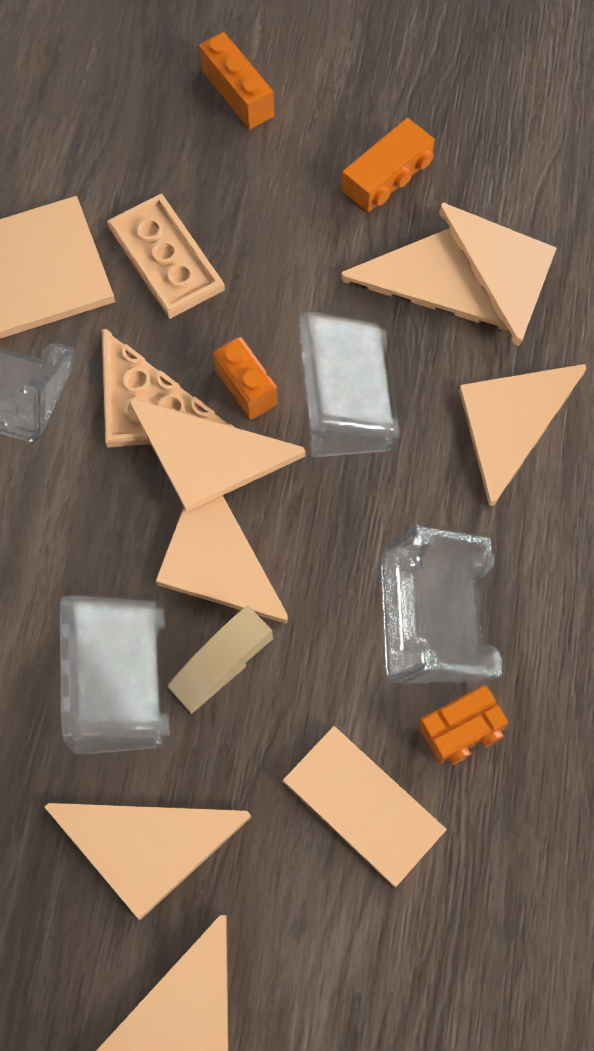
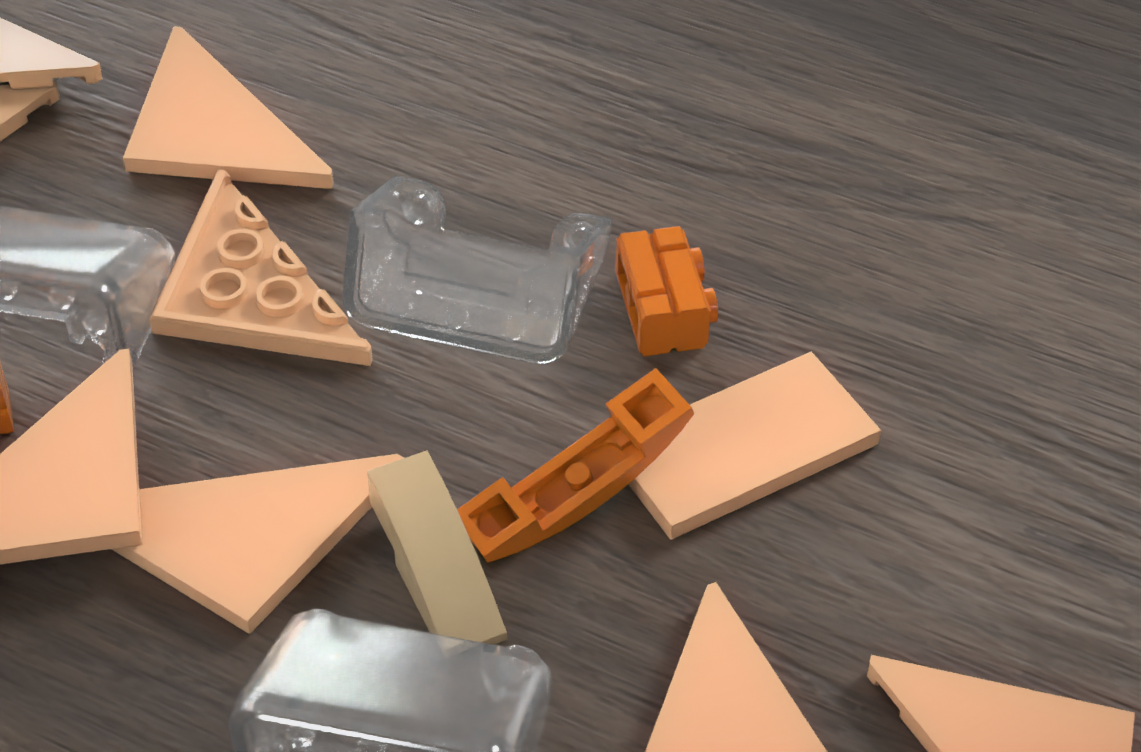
camera: 75 degrees left, 20 degrees down
(299, 716) = (581, 476): none -> orange slope
(390, 488) = (249, 288): none -> light nougat tile

